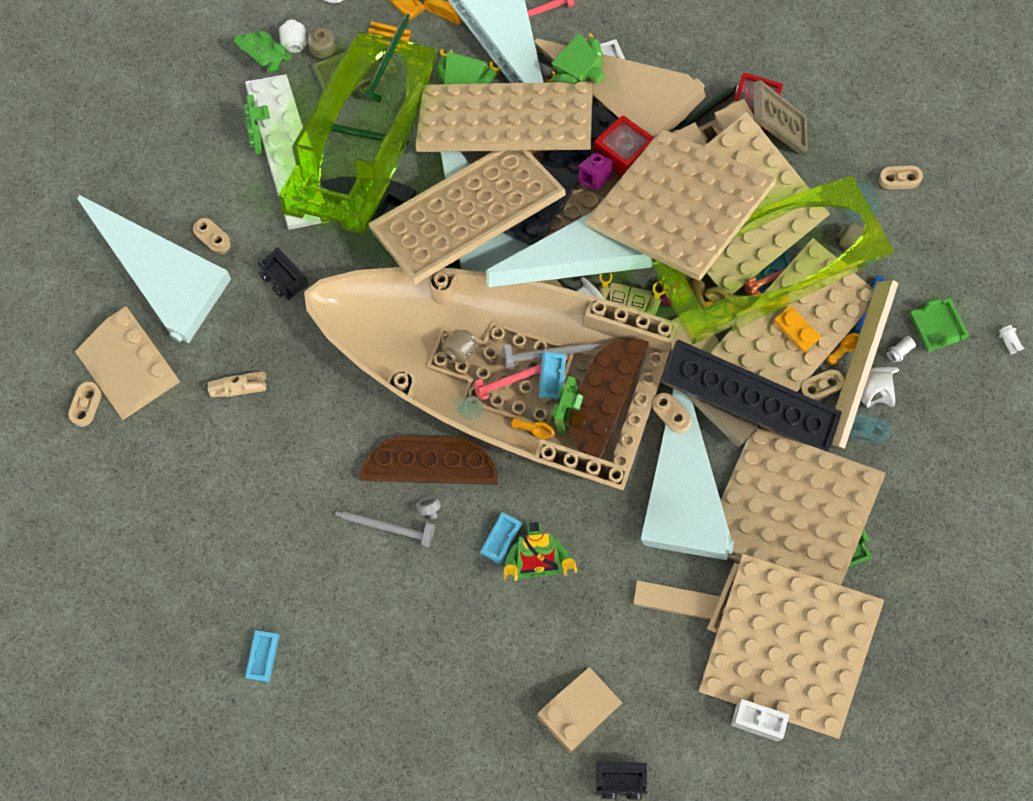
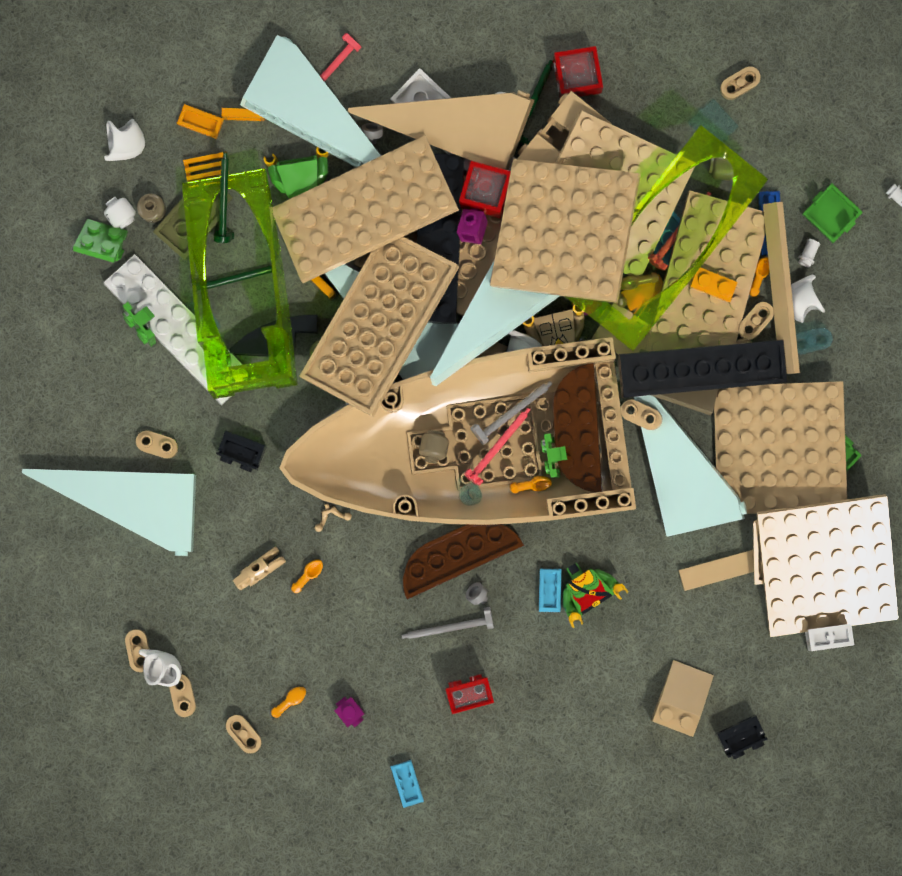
camera: 20 degrees left, 15 degrees up
(94, 426) = (160, 668): none -> white piece
(103, 465) = (183, 695): none -> tan plate
(126, 363) = (152, 598): tan slope -> none
(134, 529) = (243, 734): none -> tan plate
(202, 519) = (293, 698): none -> light orange piece
(245, 556) = (349, 711): none -> magenta brick
(284, 411) = (311, 571): none -> light orange piece
(345, 377) = (319, 527): none -> tan piece
(368, 595) = (469, 694): none -> piece
(432, 167) = (324, 287): none -> light orange tile
(551, 375) = (525, 432): medium azure plate -> none
(579, 62) = (404, 120): bright green torso -> none
(780, 117) = (609, 85): dark tan tile -> none

